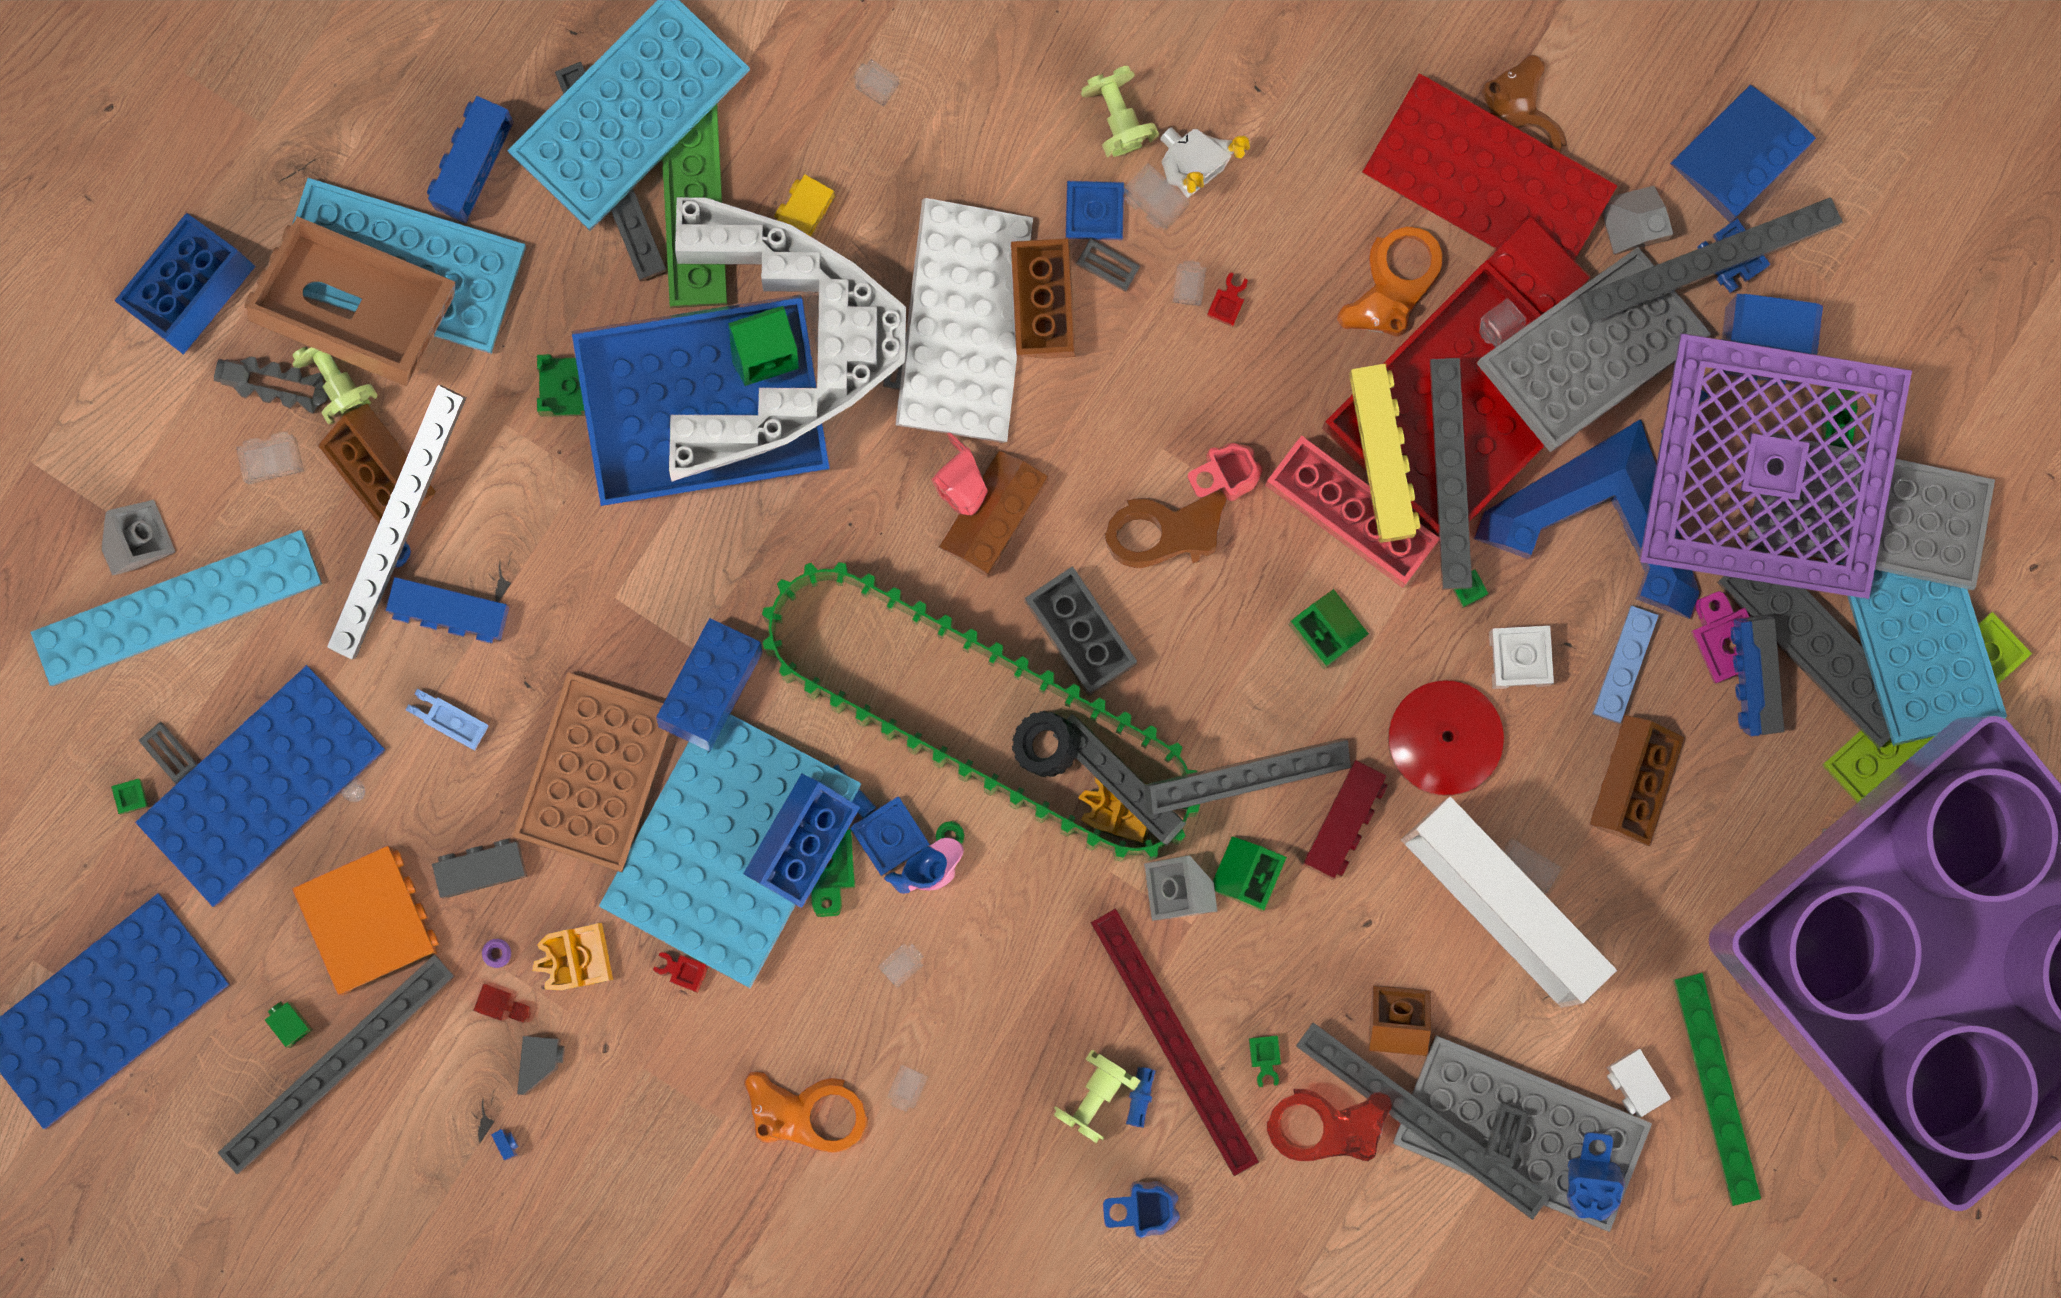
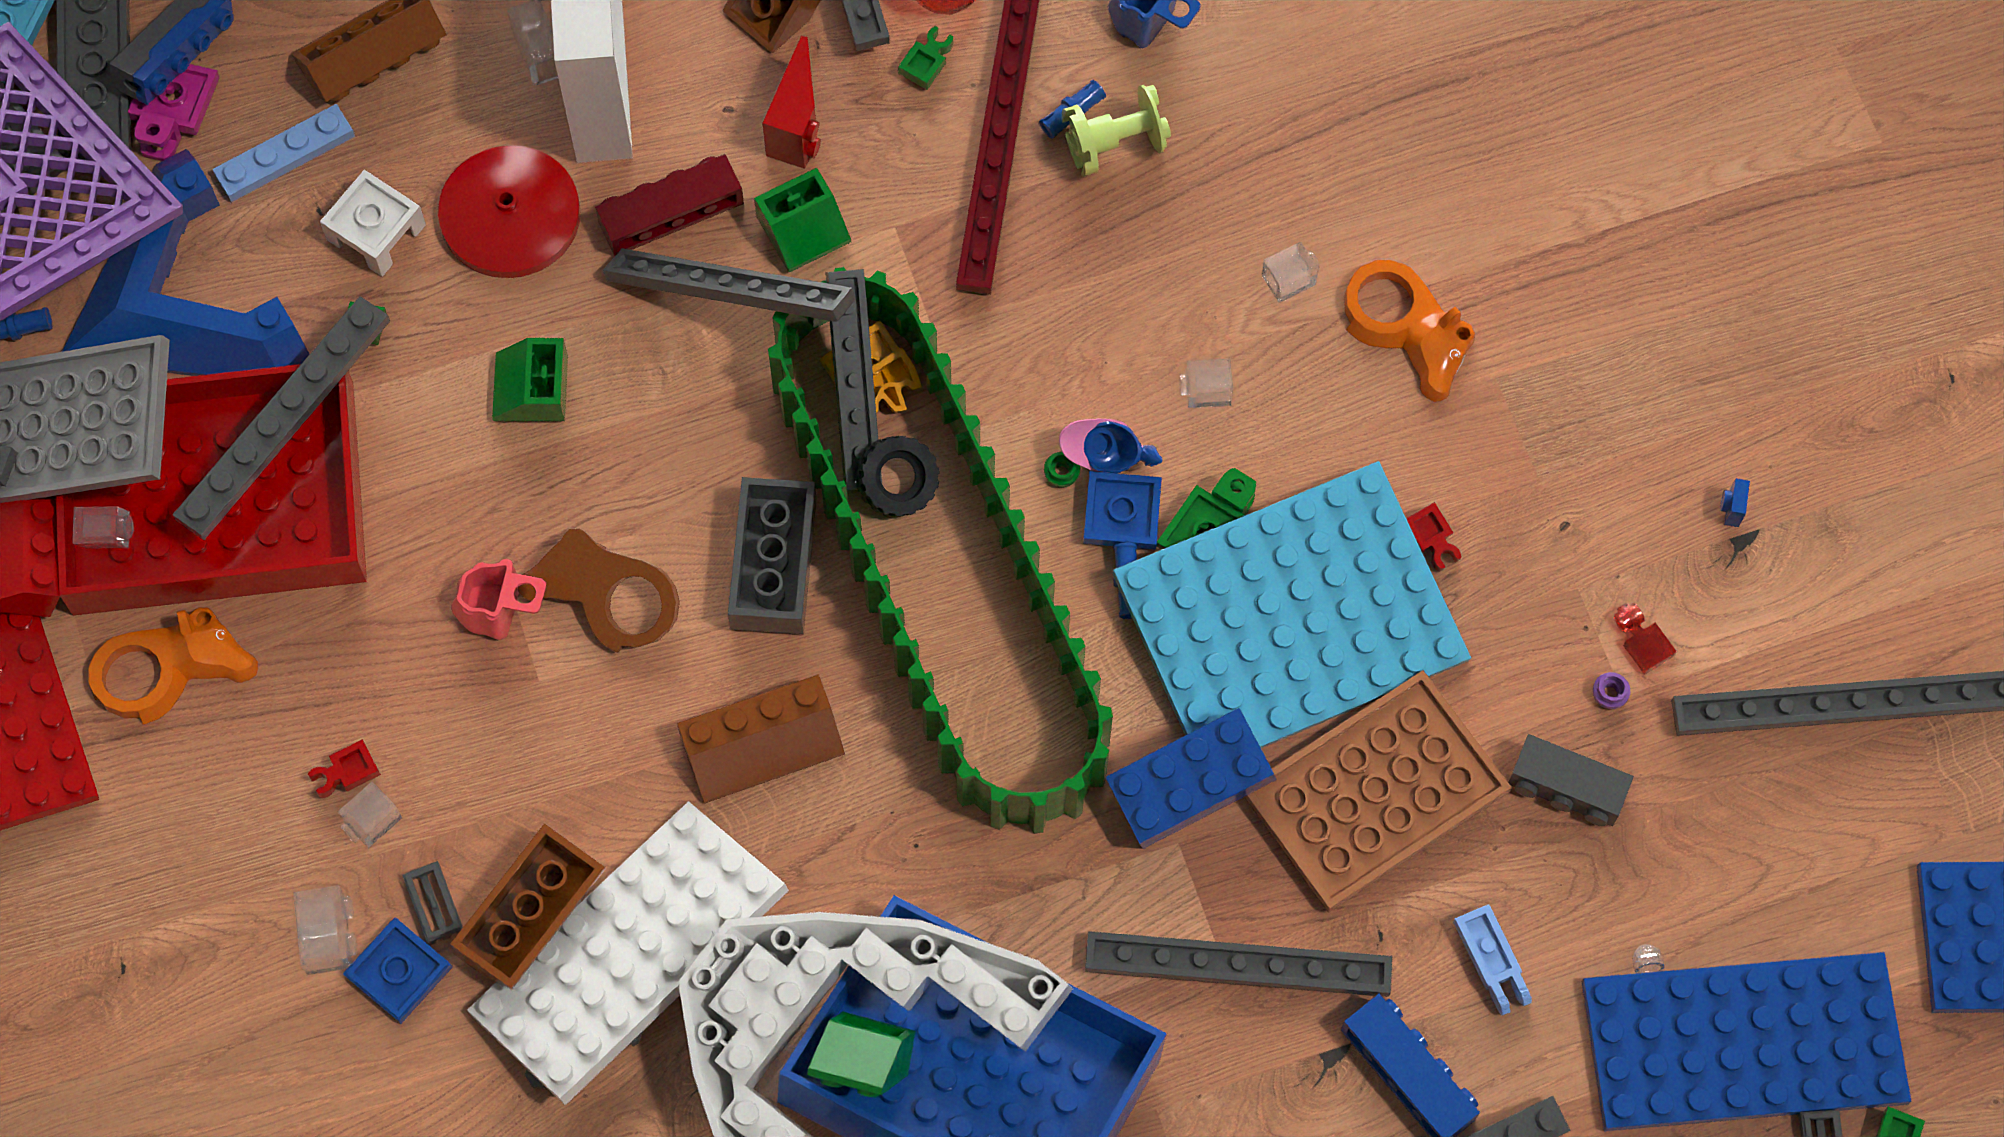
camera: 140 degrees left, 15 degrees down
(287, 1023) = (1883, 775): green brick -> none
(365, 919) = (1728, 815): orange panel -> none
(538, 1061) = (1644, 554): dark grey slope -> none
(574, 958) = (1534, 624): light orange plate -> none
(597, 597) = (1238, 964): none -> dark grey plate
(801, 840) = (1218, 549): blue slope -> none
(961, 481) = (767, 782): coral piece -> none
(1123, 122) = (287, 1029): yellowish green piece -> none
(1179, 889) = (882, 244): light grey slope -> none
(1197, 158) = (247, 931): torso -> none
(1312, 942) = (791, 121): none -> red slope
(1345, 510) = (409, 469): coral brick -> none
(1383, 453) = (328, 480): light yellow brick -> none

